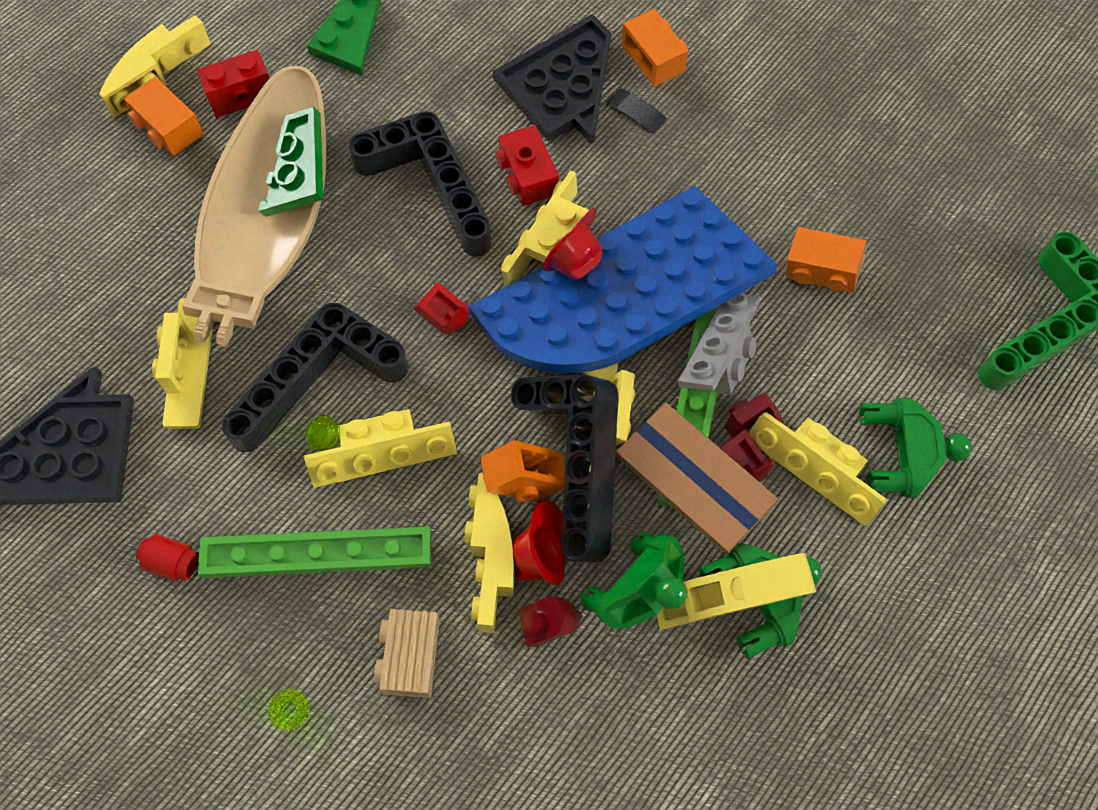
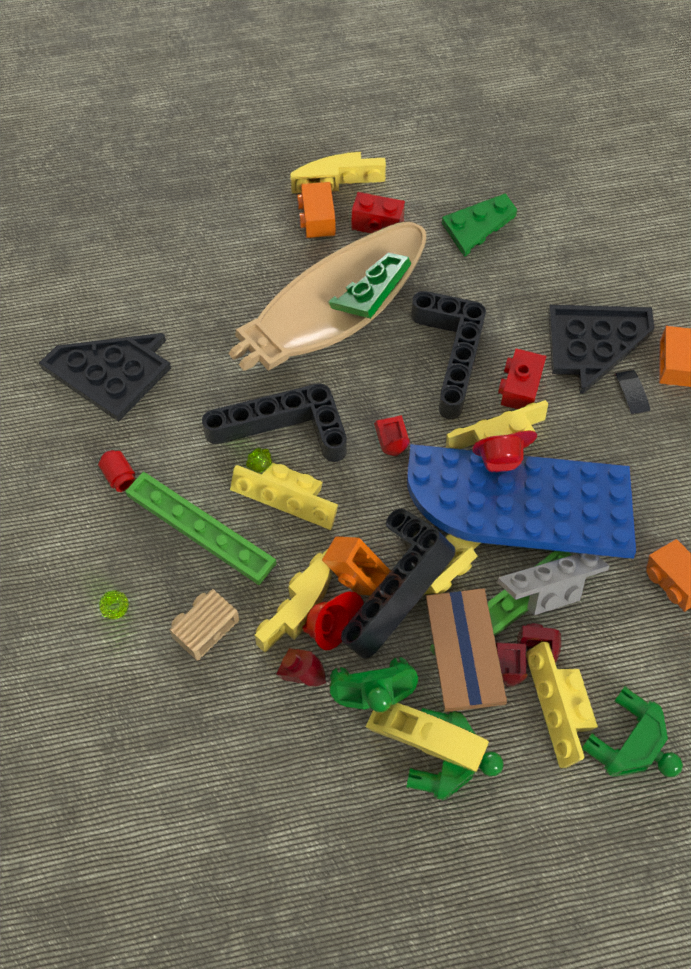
camera: 40 degrees right, 5 degrees down
(181, 369) = (209, 368): light yellow bracket -> none

